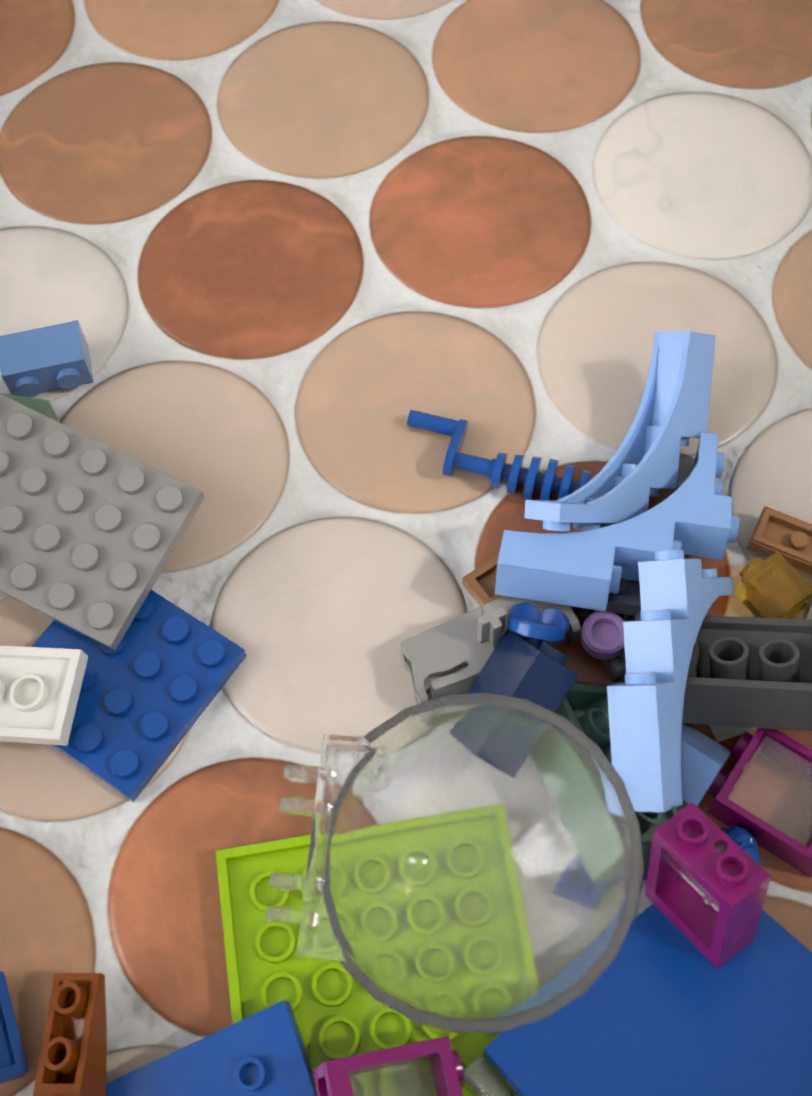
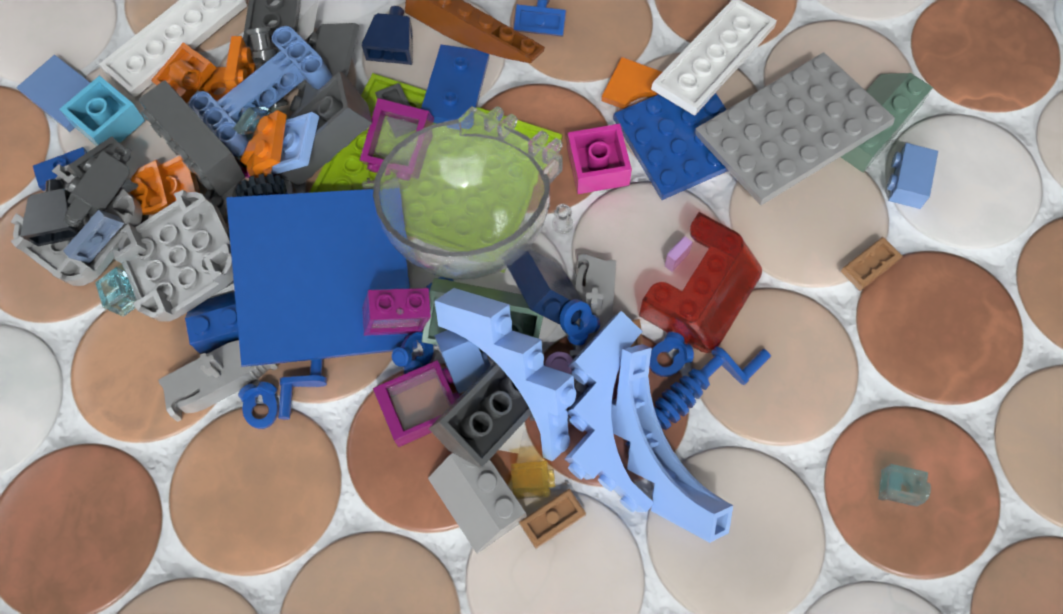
camera: 120 degrees right, 5 degrees up
(49, 804) = (630, 83): none -> orange tile
(209, 356) = (871, 263): none -> medium nougat plate
(234, 762) = (599, 158): none -> dark pink brick
(331, 579) = (678, 253): none -> lavender tile
(361, 497) = (713, 293): none -> clear red windscreen
(473, 505) = (672, 341): none -> blue piece
(488, 217) = (915, 481): none -> clear light blue brick

